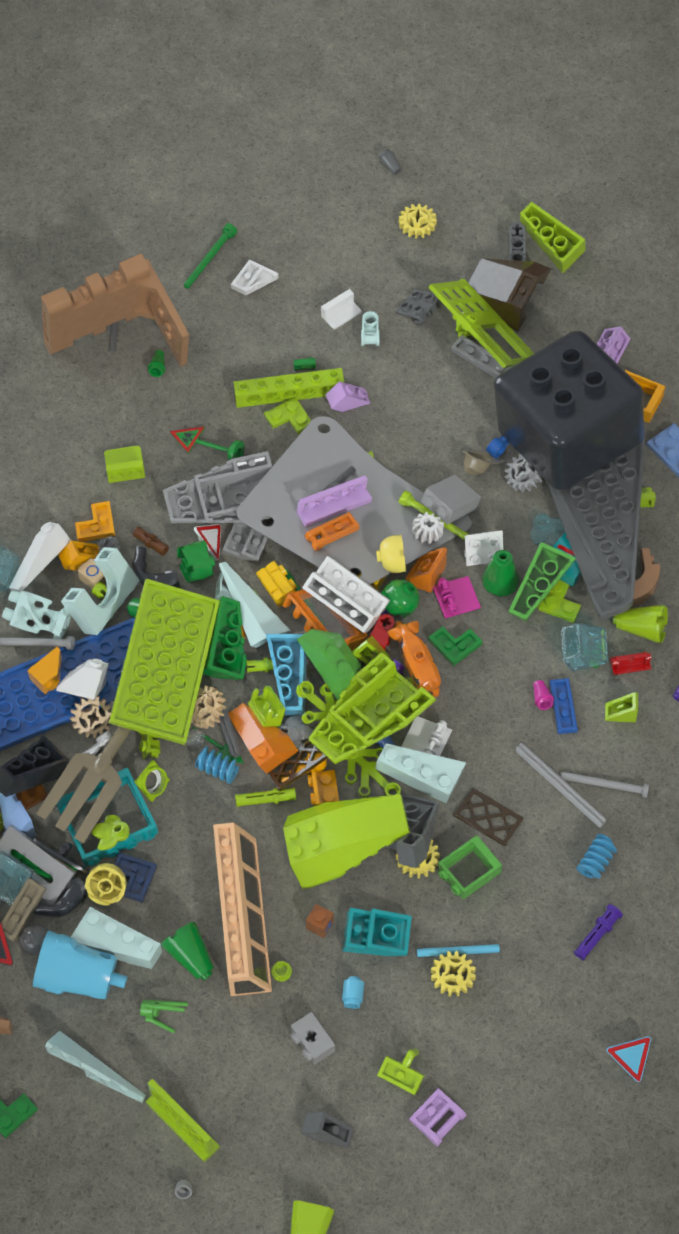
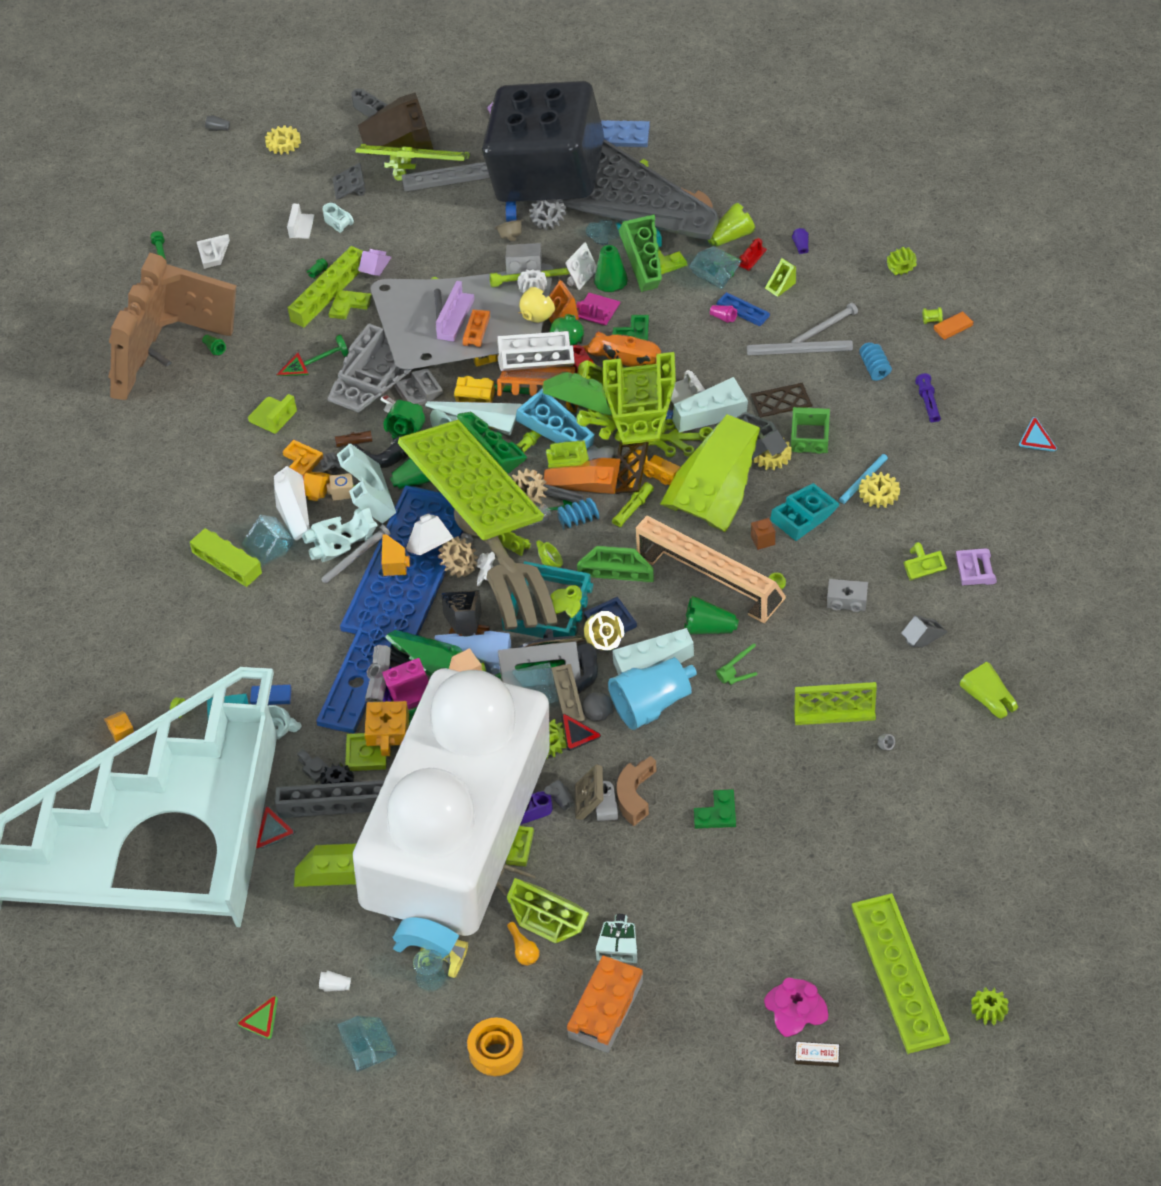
camera: 45 degrees left, 10 degrees down
(71, 1052) = (741, 735): light aqua wedge -> none
(188, 836) = (616, 564): none -> bright green wedge
(353, 992) = (835, 552): medium azure brick -> none
(552, 236) = (385, 81): lime wedge -> none

